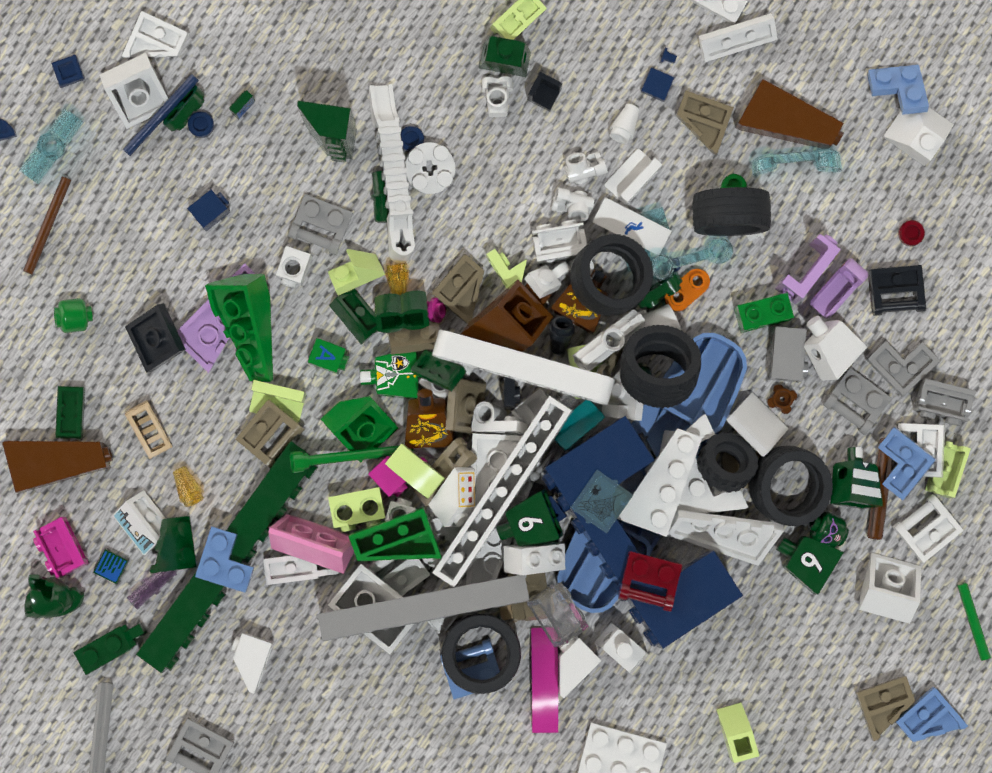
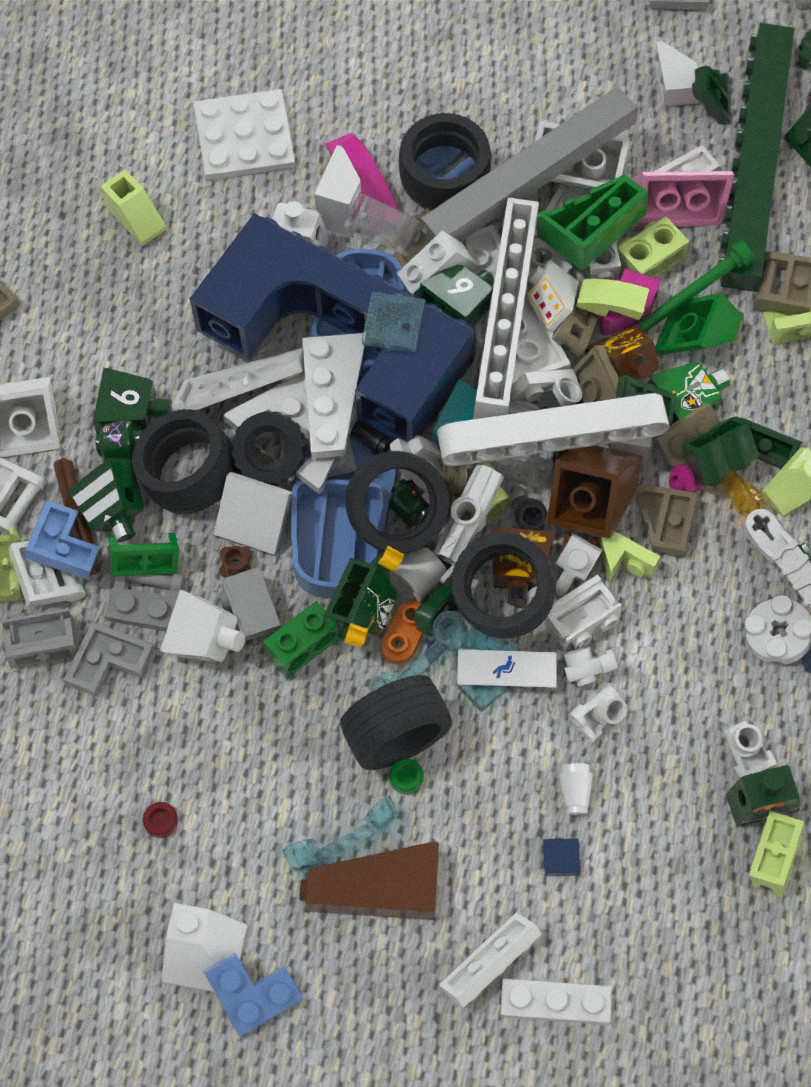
camera: 160 degrees right, 20 degrees down
(216, 563) = (761, 129): medium blue plate -> none
(232, 627) = (713, 92): none -> dark green wing
(328, 356) = (772, 382): green brick -> none
(544, 91) = (695, 781): black panel -> none
(632, 176) = (534, 732): white panel -> none
(652, 572) = (300, 275): dark red plate -> none
(666, 56) = (566, 898): dark blue piece -> none
(705, 119) = (481, 840): dark tan wing -> none
(715, 309) = (364, 597): none -> dark green torso
(797, 290) = (273, 675): lavender panel -> none
(838, 288) = (223, 707): lavender animal -> none
(848, 428) = (143, 558): none -> green hinge
(897, 281) = (153, 751): black plate -> none

